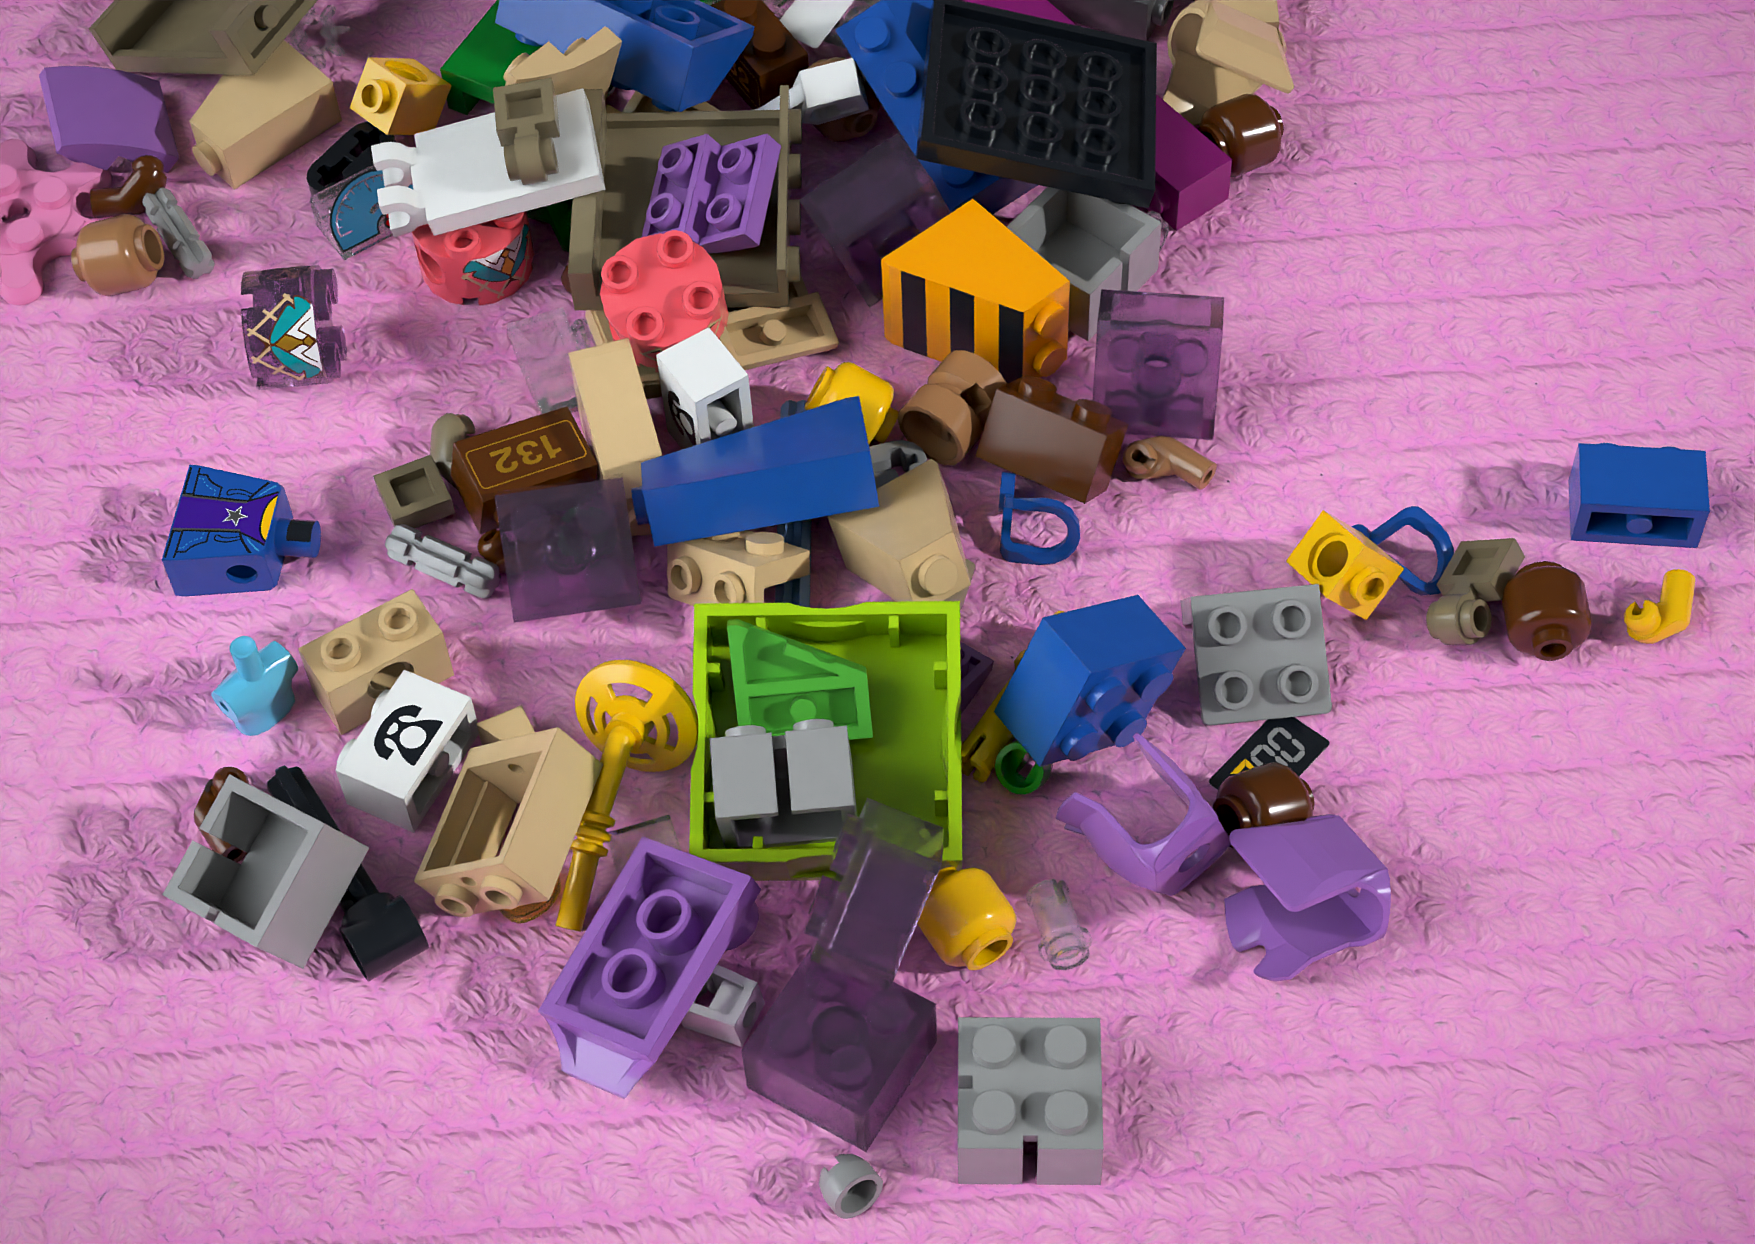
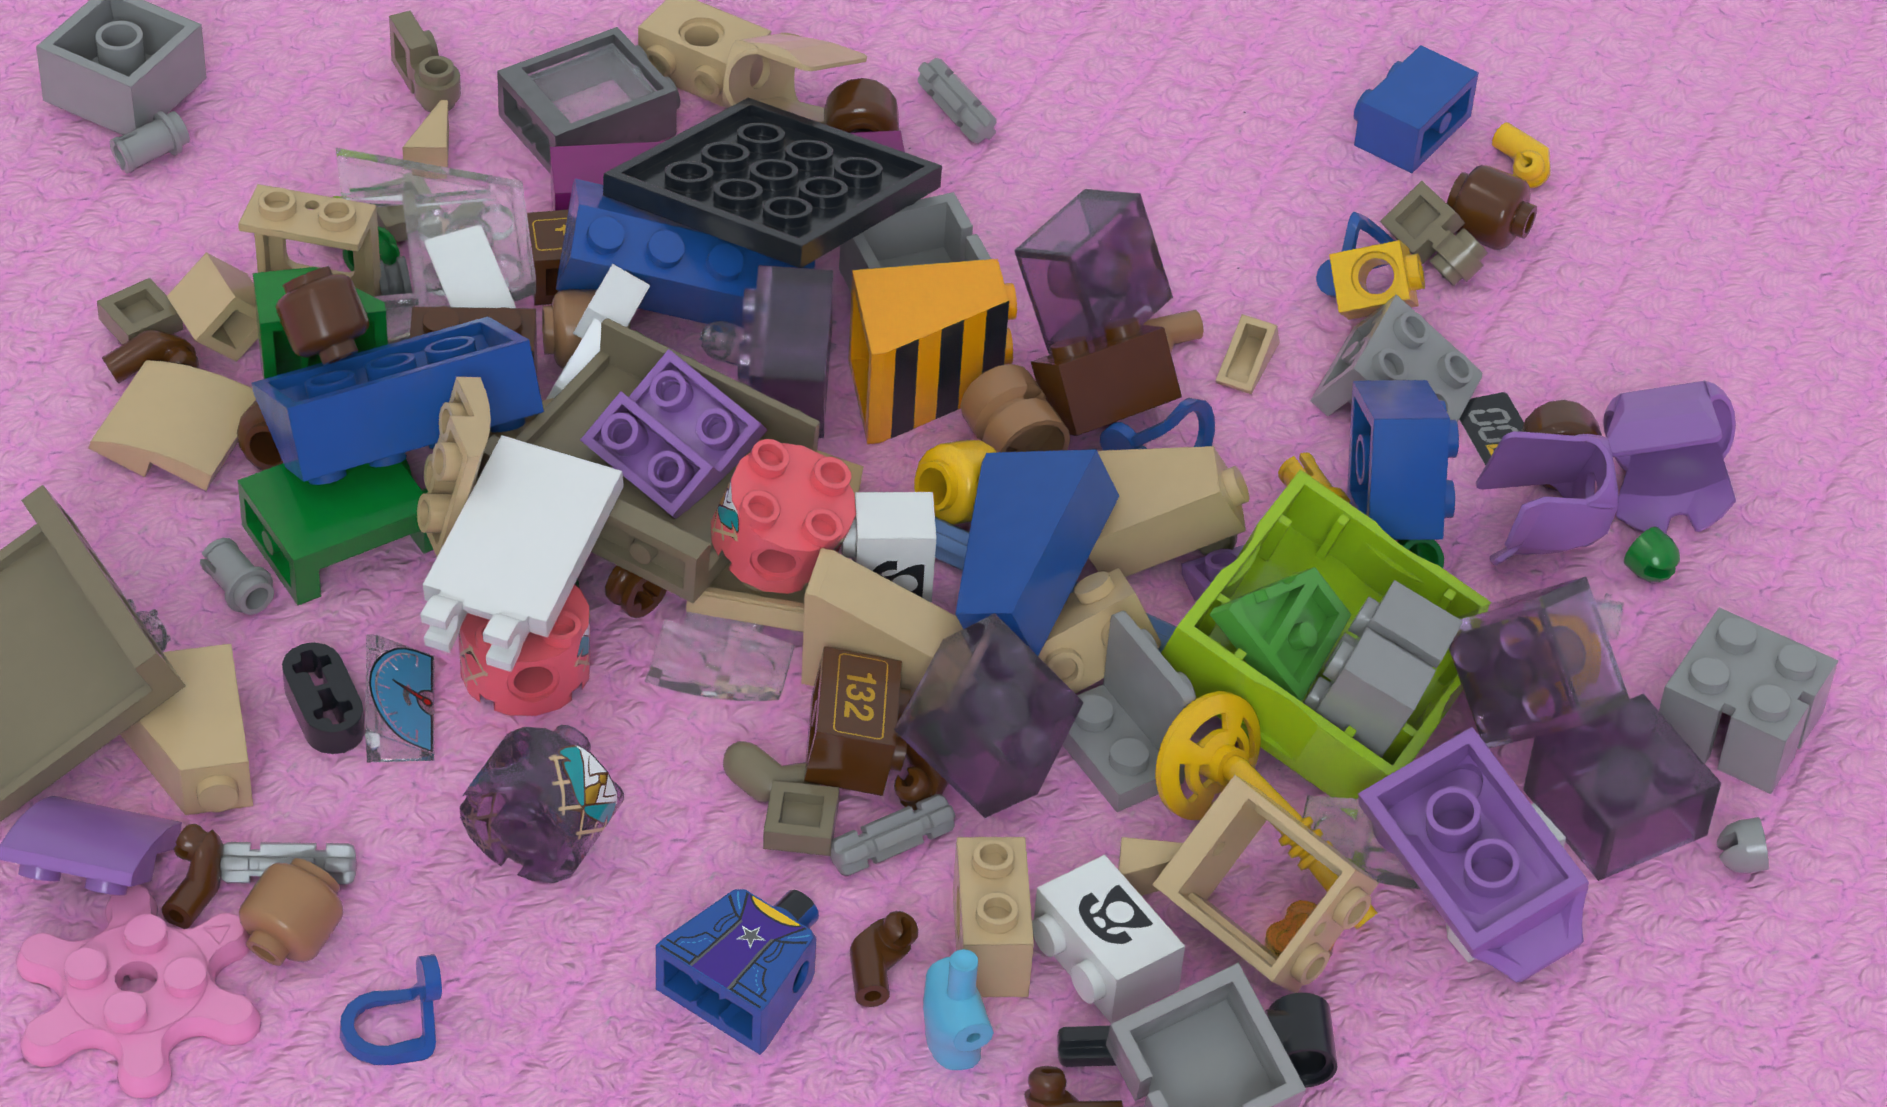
camera: 65 degrees left, 10 degrees down
(74, 356) = (426, 989): none -> blue piece
(306, 610) = (876, 952): none -> reddish brown arm
(400, 96) = (290, 610): yellow brick -> none
(439, 47) = (245, 586): none -> light grey pin
(525, 127) = (521, 476): dark tan plate -> none
(662, 631) = (1128, 716): none -> light grey bracket
(1181, 947) = (1653, 556): none -> green hinge
(1202, 530) = (1248, 354): none -> tan piece
(1344, 185) = (957, 100): none -> light grey axle

